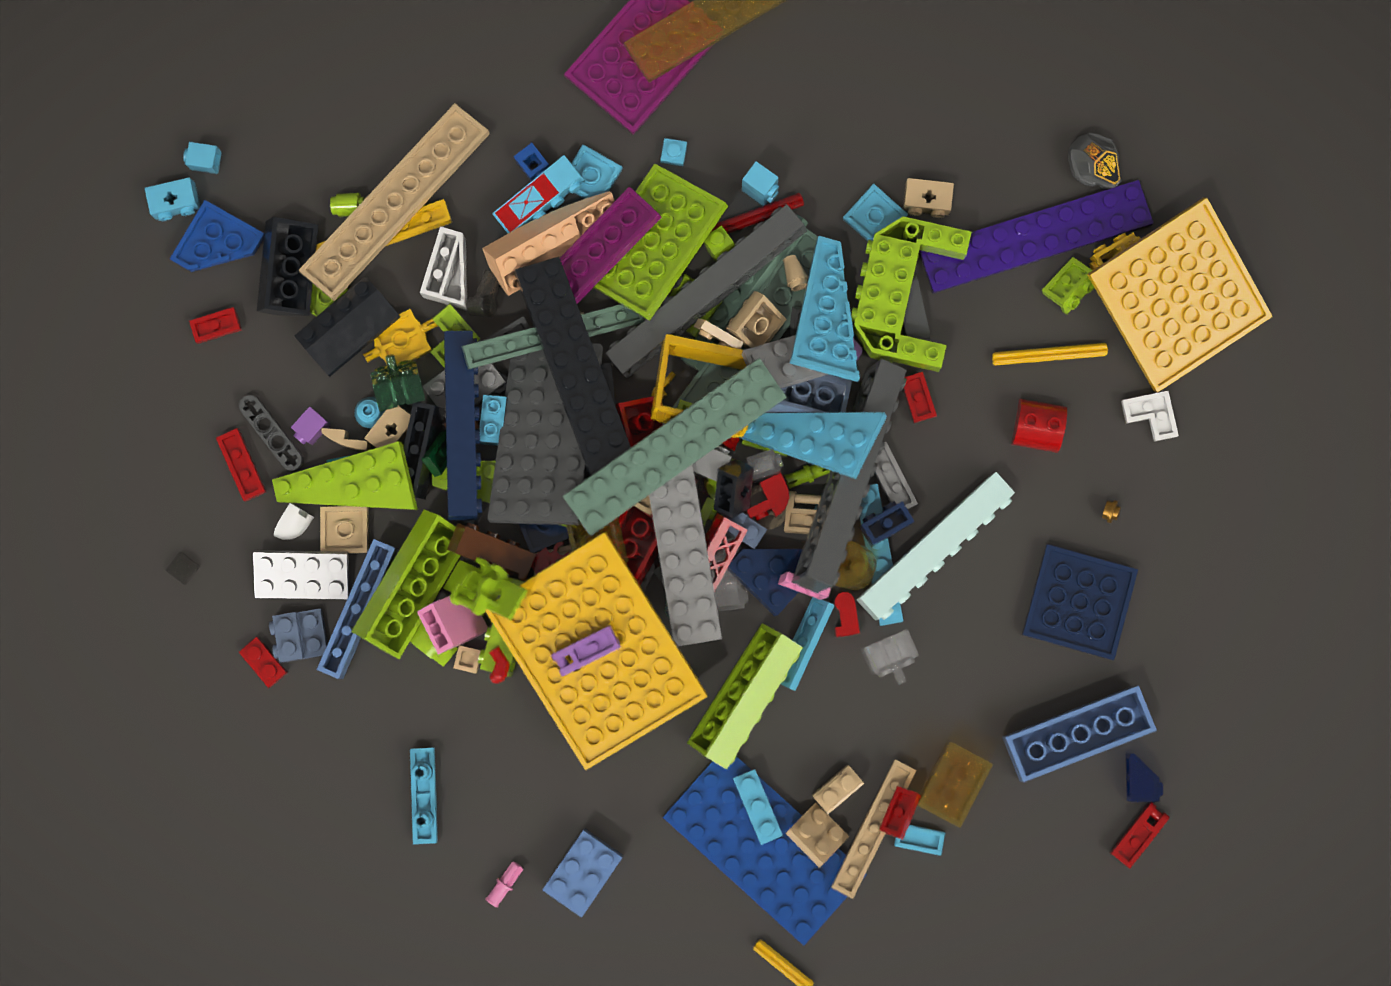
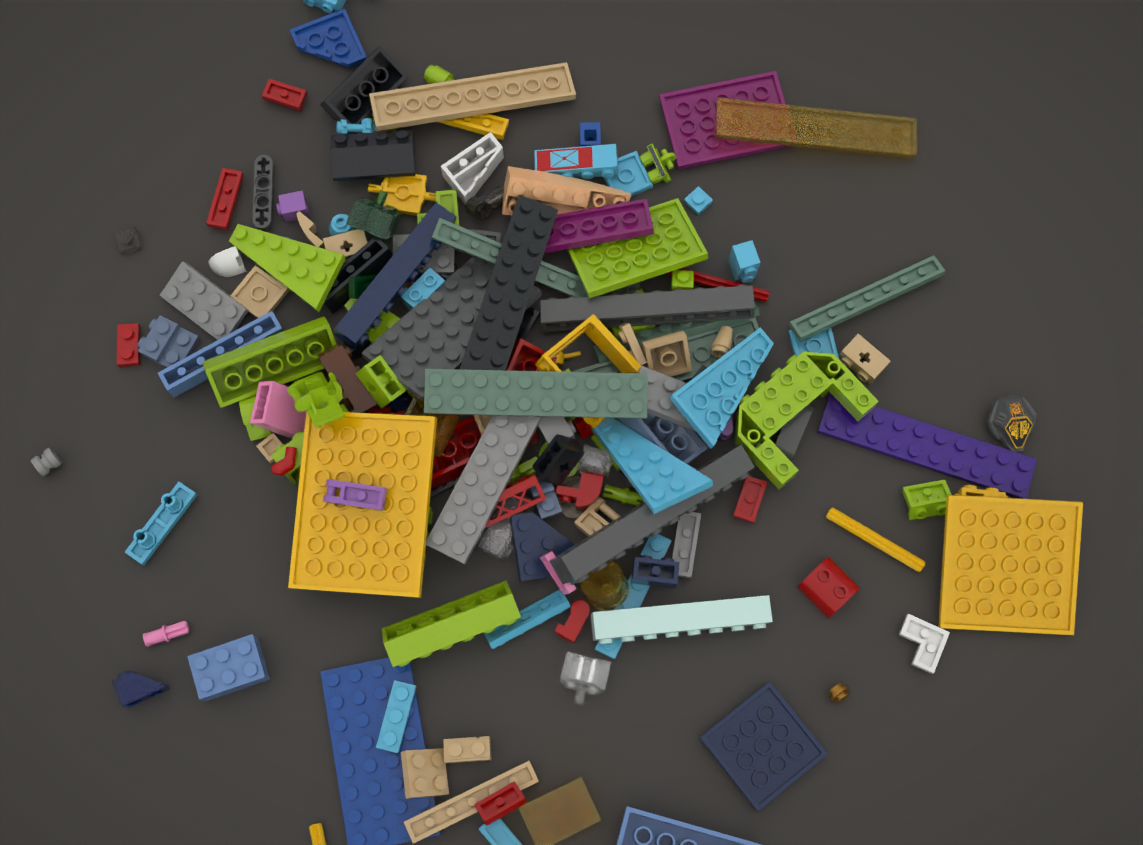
camera: 30 degrees right, 10 degrees down
(277, 818) = (47, 460): none -> light grey wheel
(319, 303) = (365, 127): none -> medium azure bar
(517, 946) = (136, 688): none -> clear blue slope
(526, 533) = (380, 381): none -> lime brick
(621, 149) = (660, 172): none -> lime hips
(891, 137) = (866, 298): none -> sand green plate

